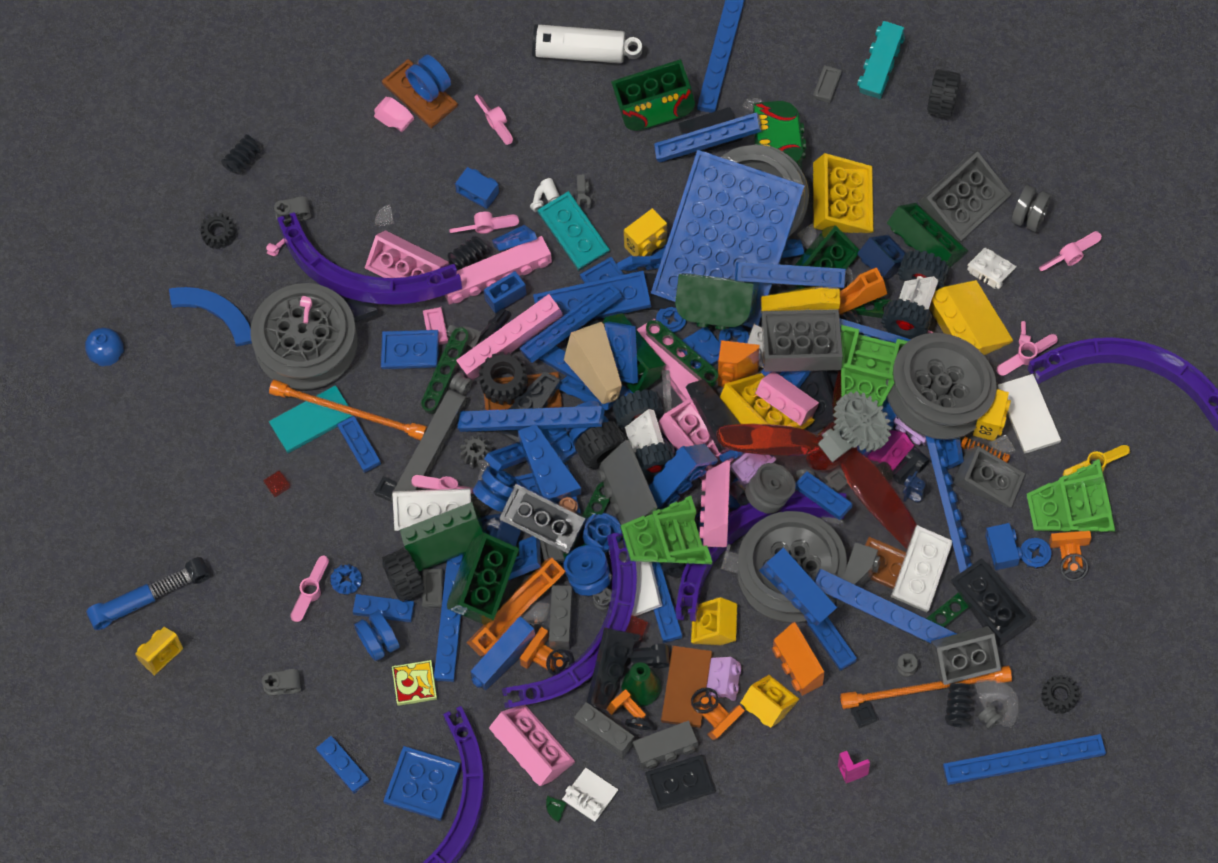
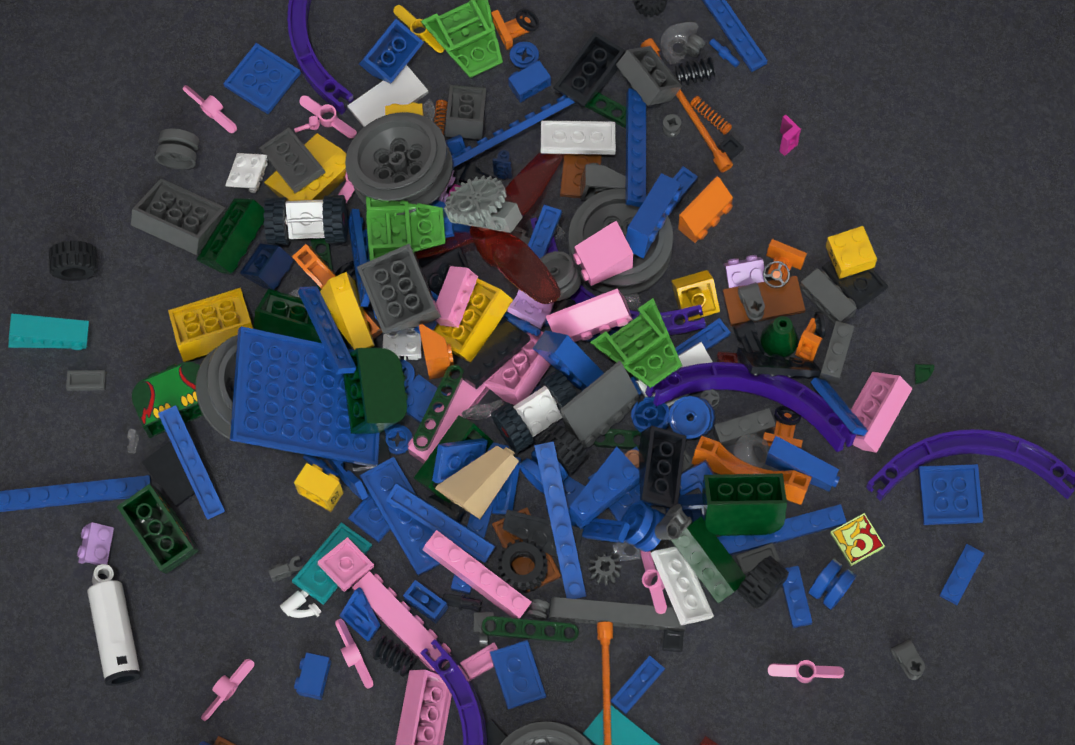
camera: 110 degrees left, 5 degrees up
(346, 587) = (771, 646): blue gear -> none
(486, 510) = (672, 524): none -> dark grey piece
(544, 705) = (839, 406): none -> blue tile
(564, 236) = (345, 564): none -> bright pink plate
(590, 794) = (898, 347): white hinge -> none
(664, 52) = (95, 544): none -> lavender bracket
(688, 669) = (751, 298): none -> dark grey piece
(702, 780) = (851, 252): none -> yellow brick
(769, 700) = (751, 225): yellow slope -> none
(770, 528) = (604, 254): none -> bright pink slope
(926, 696) = (696, 100): none -> orange piece
(973, 746) = (724, 52): none -> blue bar
(986, 304) = (292, 160): none -> dark grey tile
(1076, 427) = (391, 52): none -> blue slope
(1088, 306) = (262, 78): none -> blue plate

